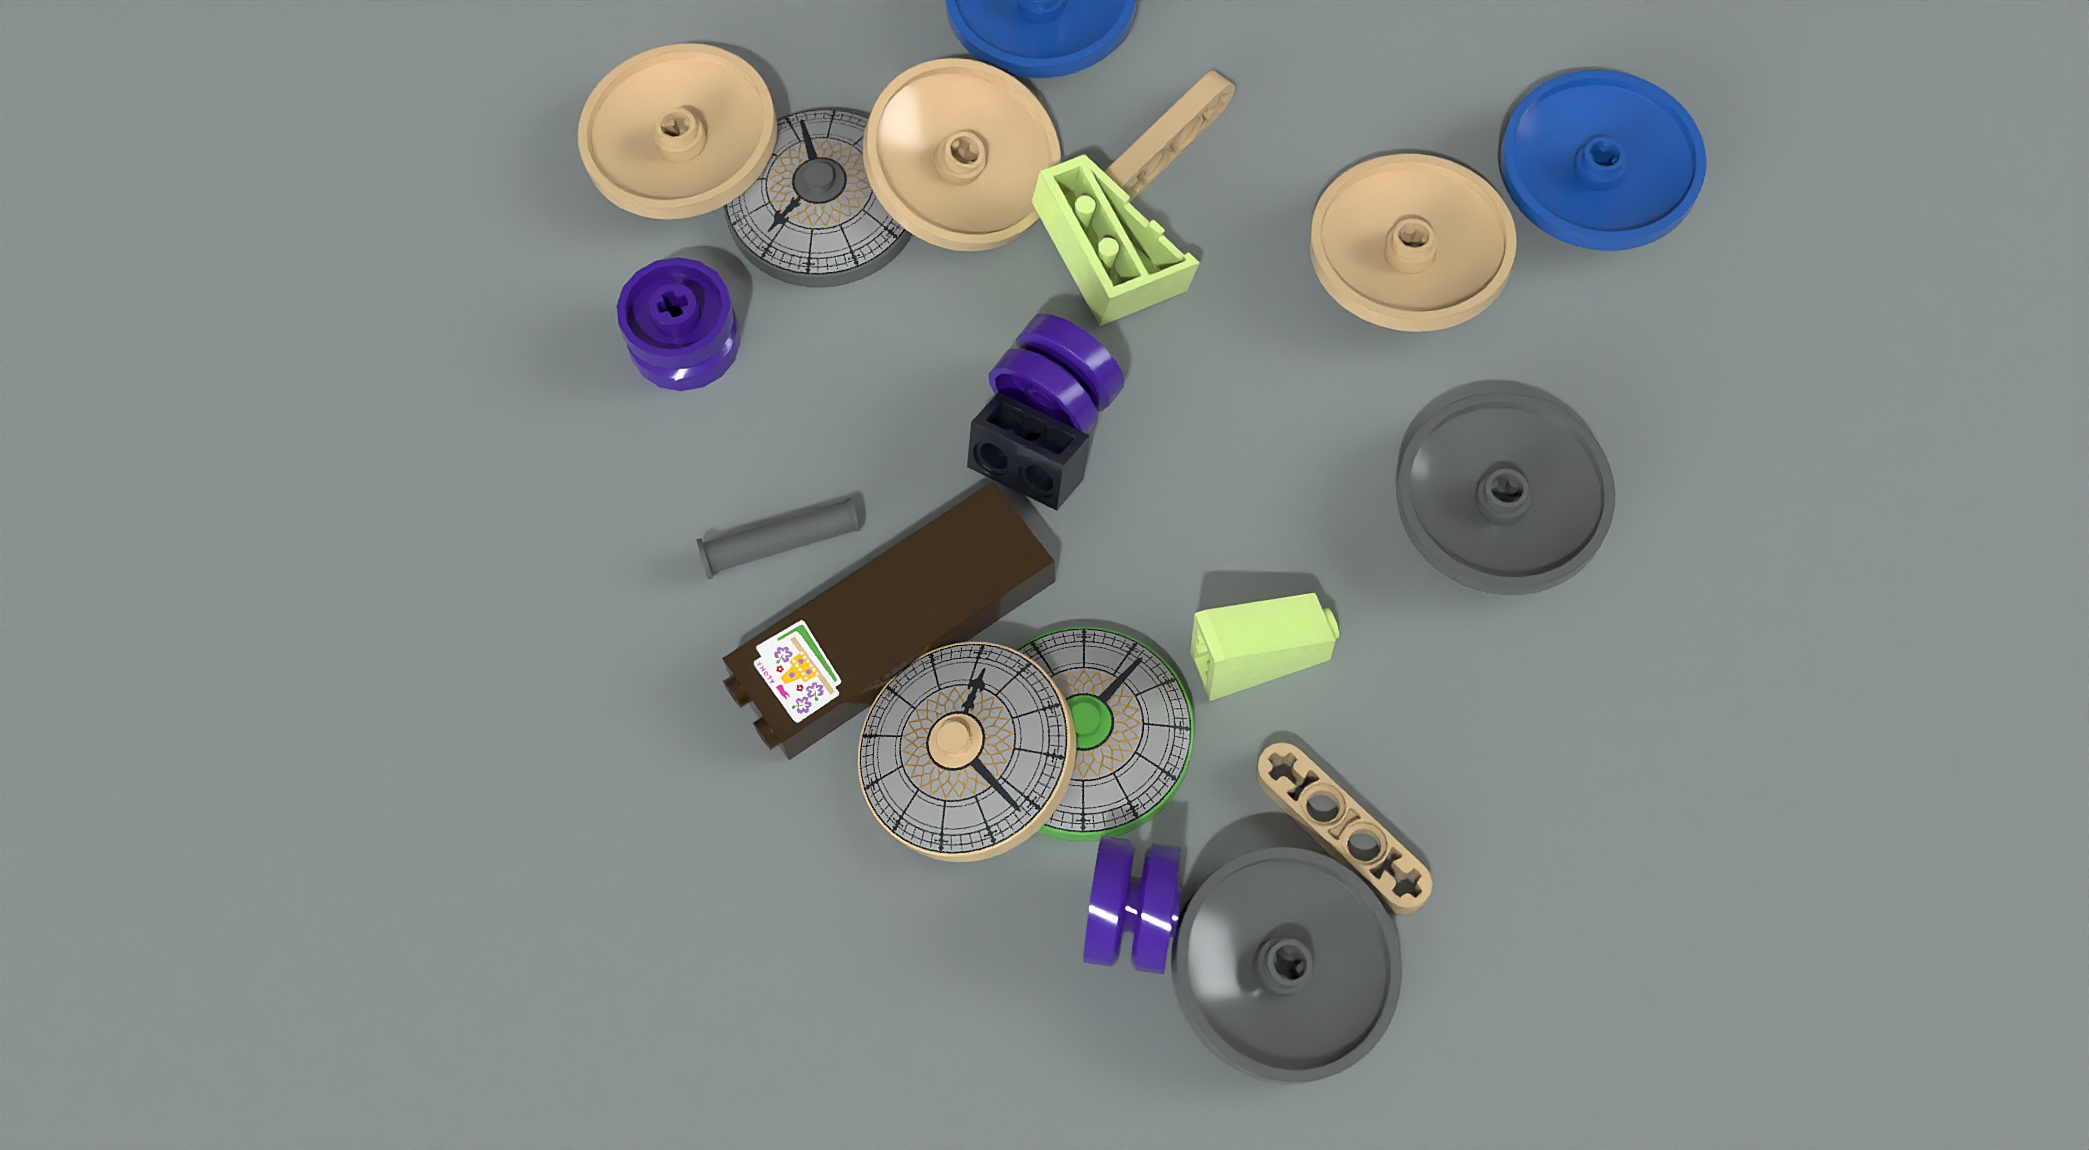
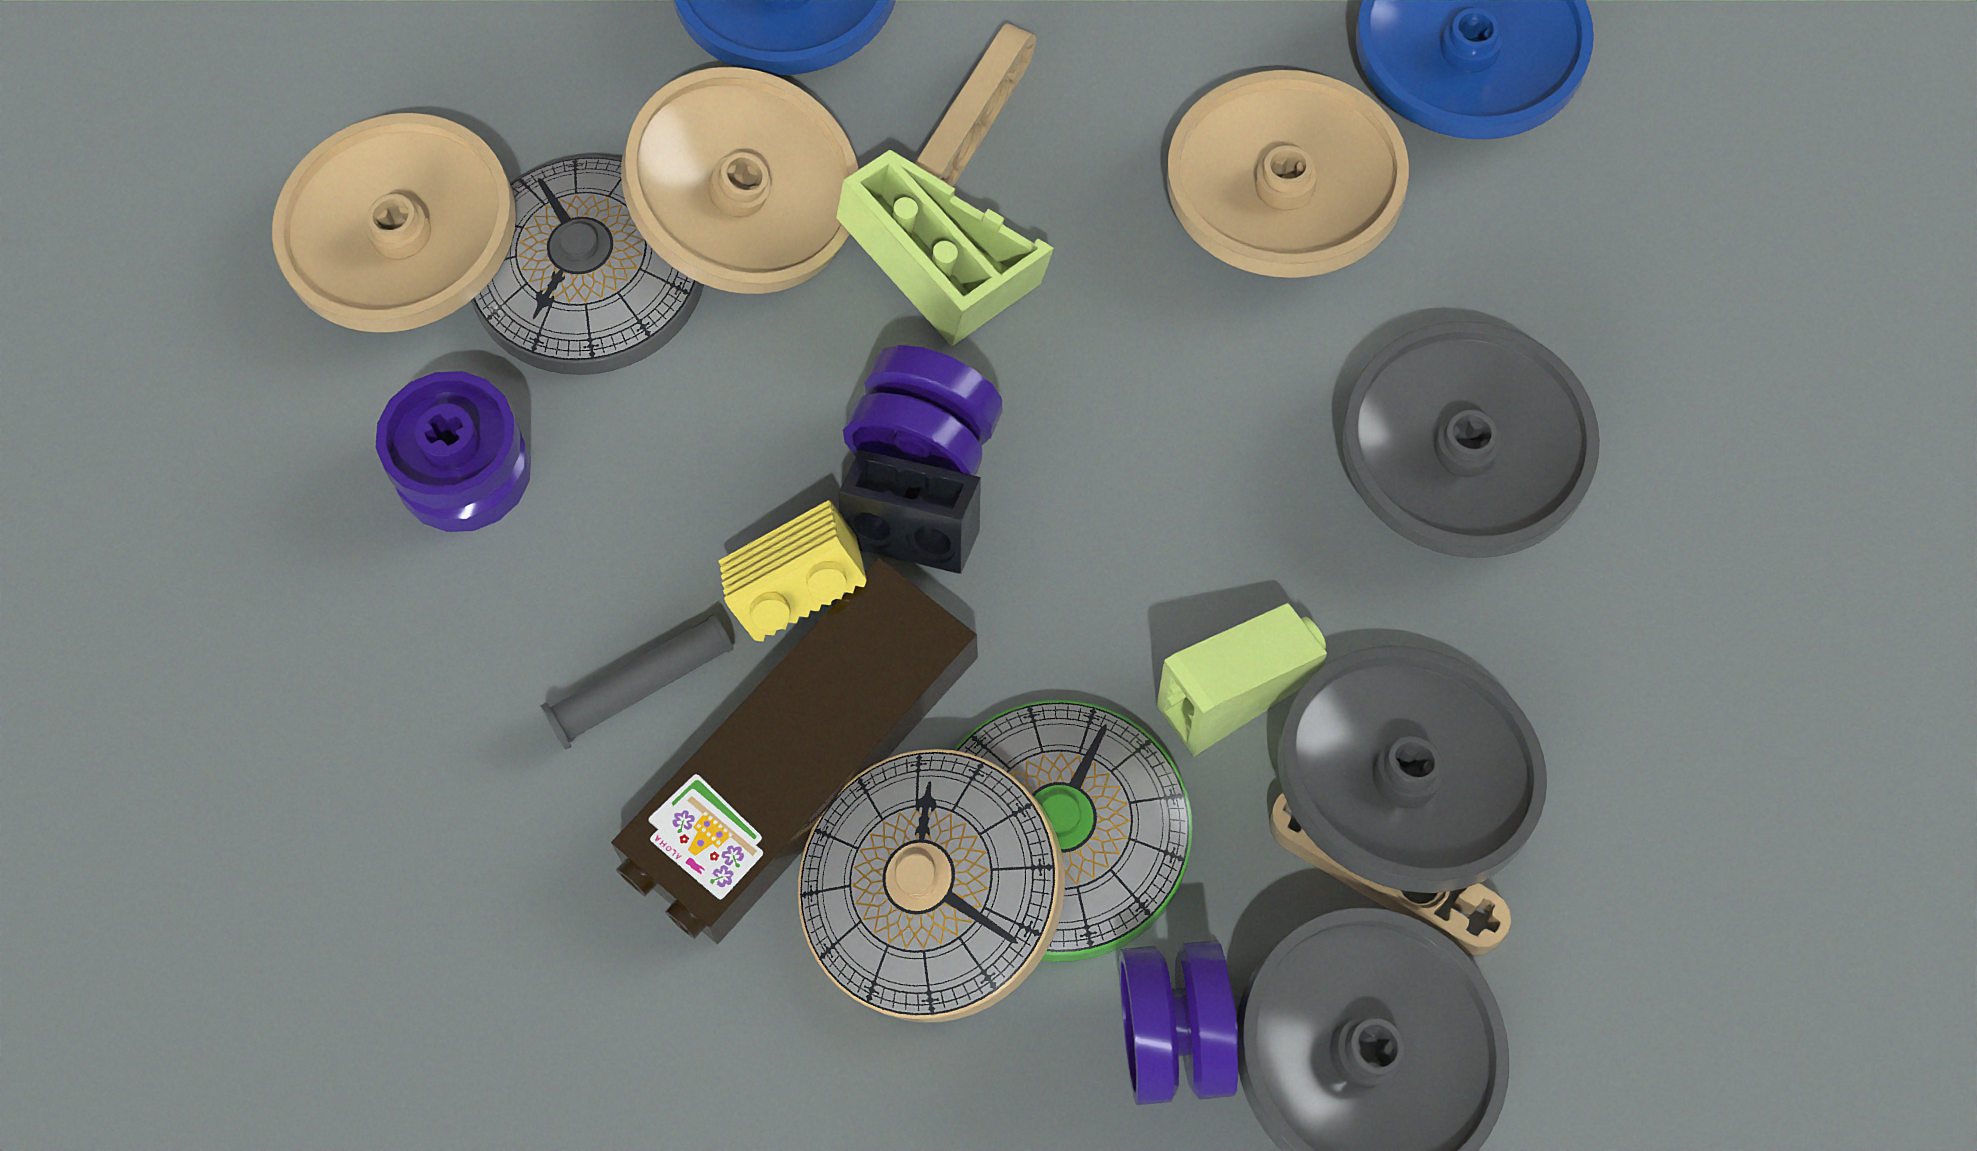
camera: 15 degrees left, 0 degrees up
(920, 477) = (792, 571): none -> light yellow brick
(1381, 749) = (1411, 769): none -> dark grey dish

